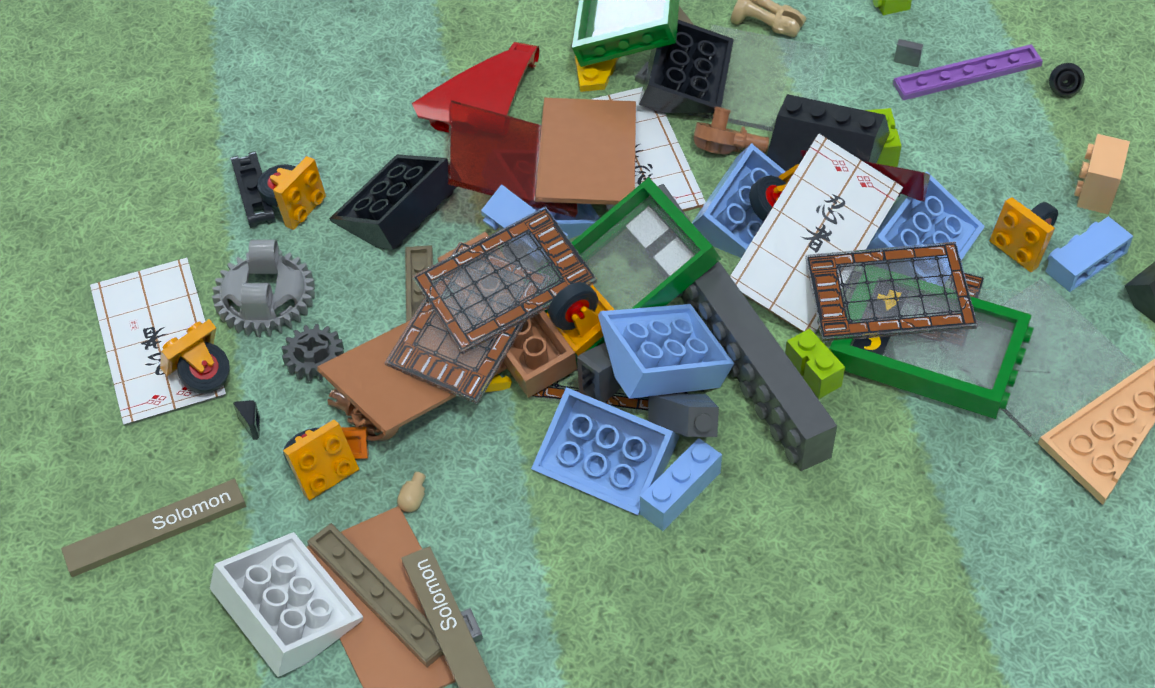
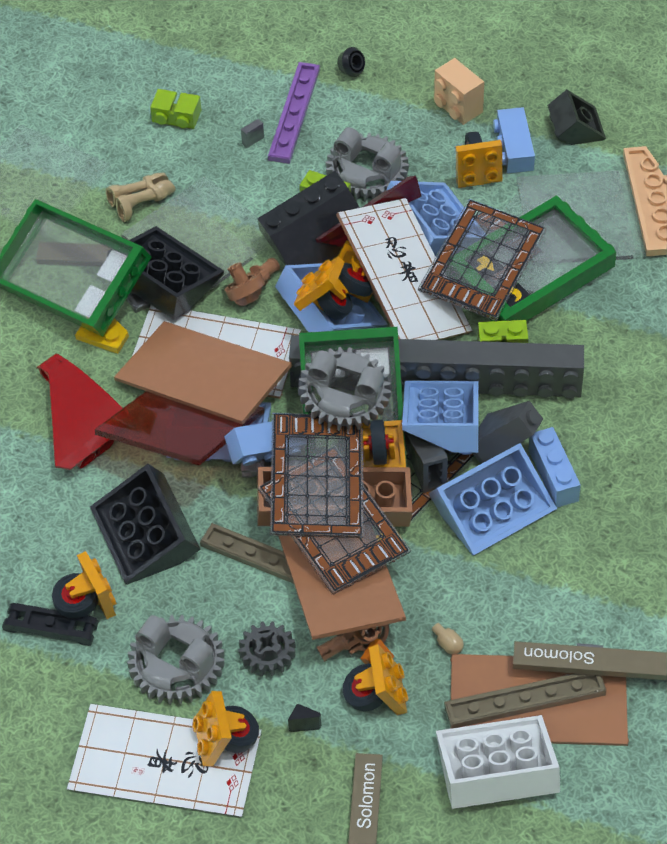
camera: 60 degrees left, 0 degrees up
(616, 254) = (336, 405): none -> light grey piece
(732, 183) = (325, 290): none -> light orange plate
(954, 158) = (388, 164): none -> light grey piece

